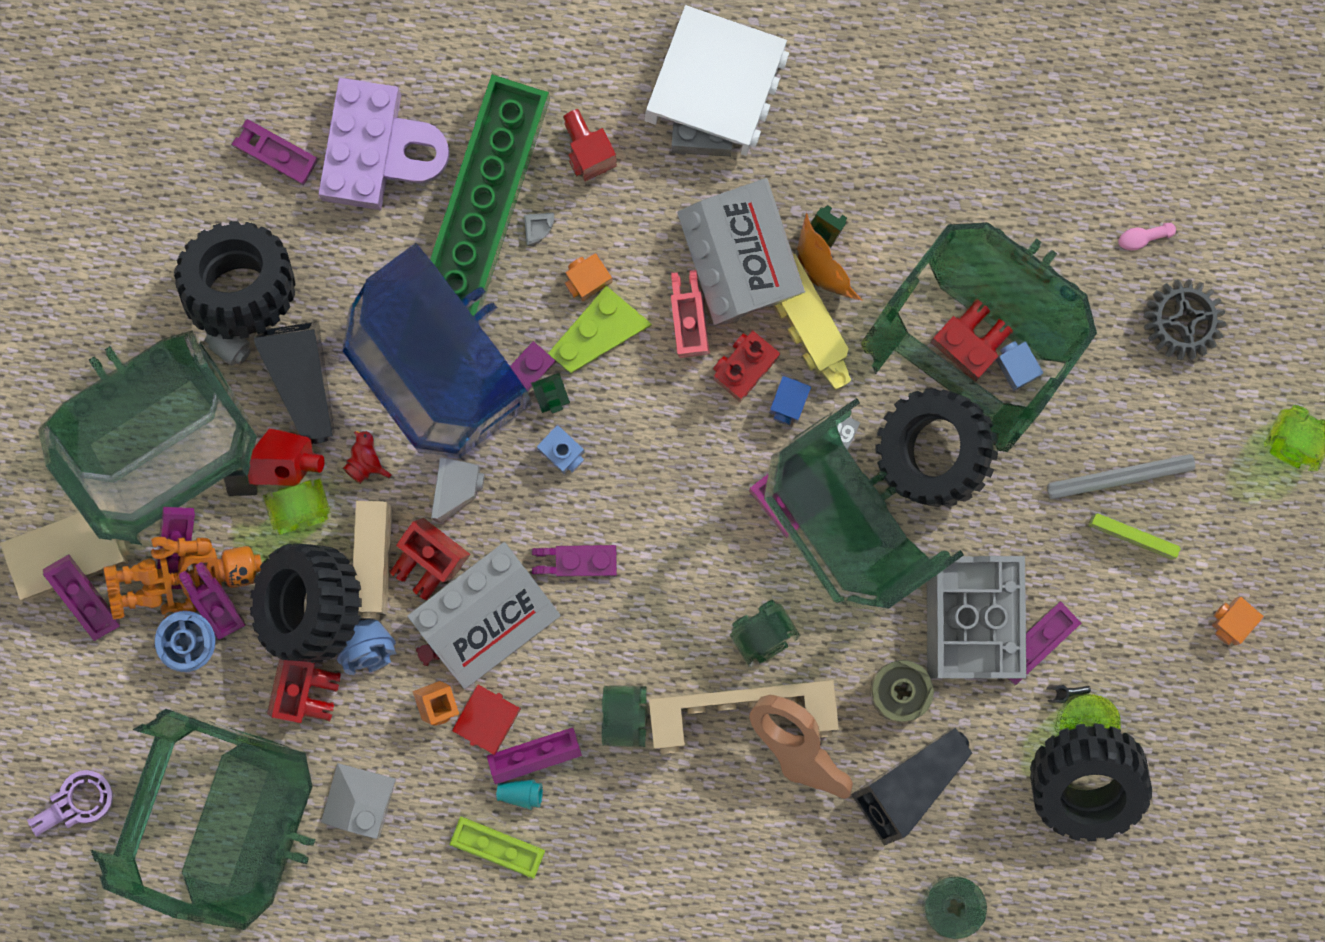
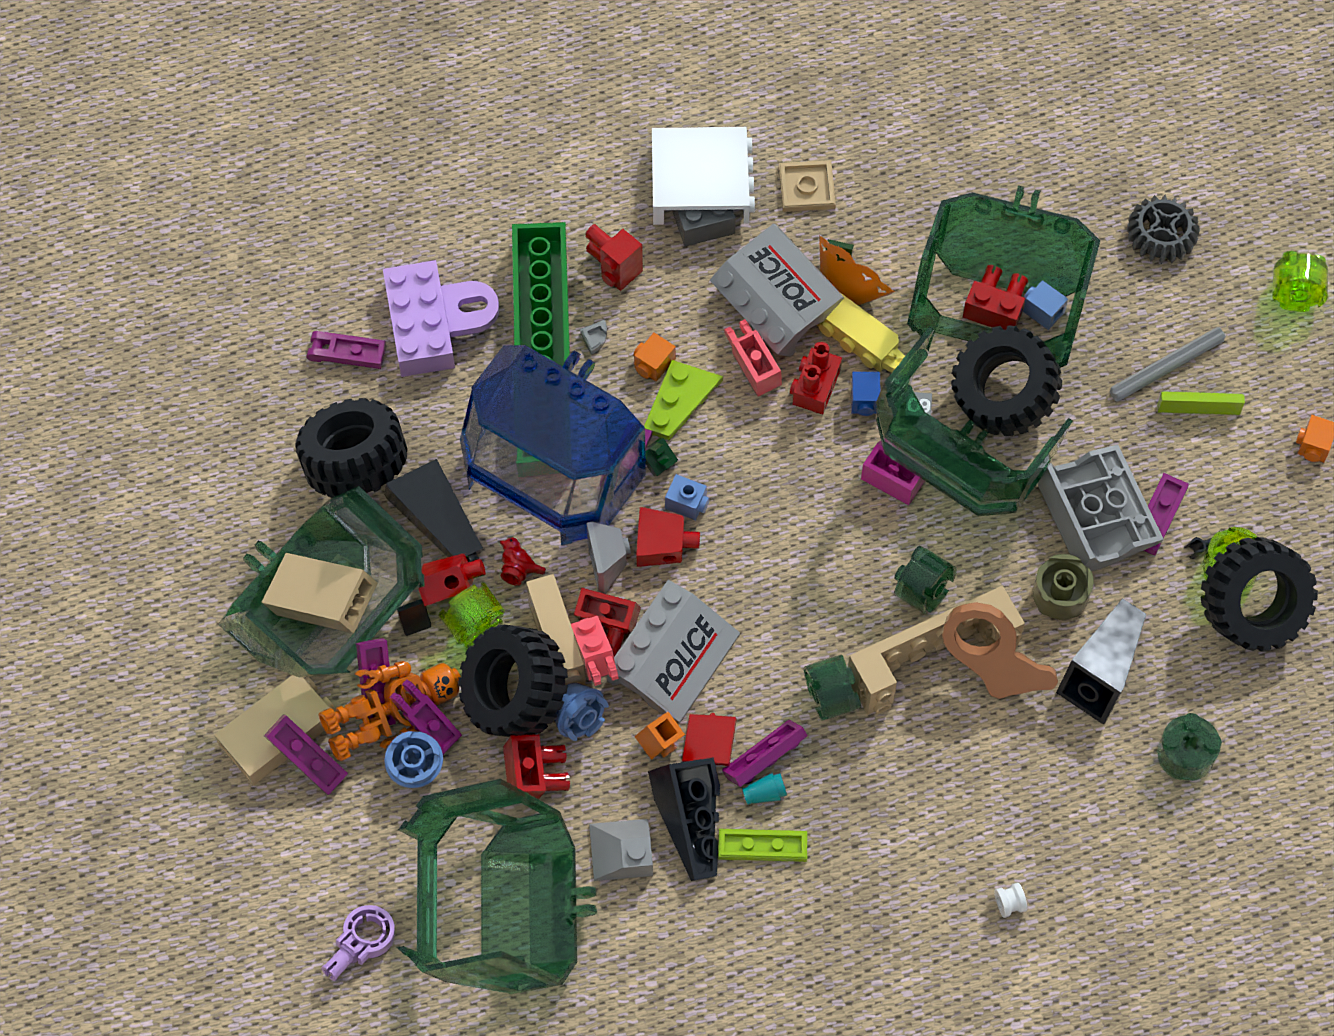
camera: 20 degrees left, 20 degrees down
(148, 433) = (320, 592): none -> tan brick
(398, 599) = (594, 649): none -> coral hinge
(426, 654) = (635, 702): dark red piece -> none
(437, 783) = (687, 804): none -> black wedge
(520, 486) = (662, 538): none -> red torso
(578, 560) = (736, 583): magenta hinge -> none
(828, 127) = (807, 186): none -> tan tile
(1138, 237) = (1096, 185): bright pink piece -> none

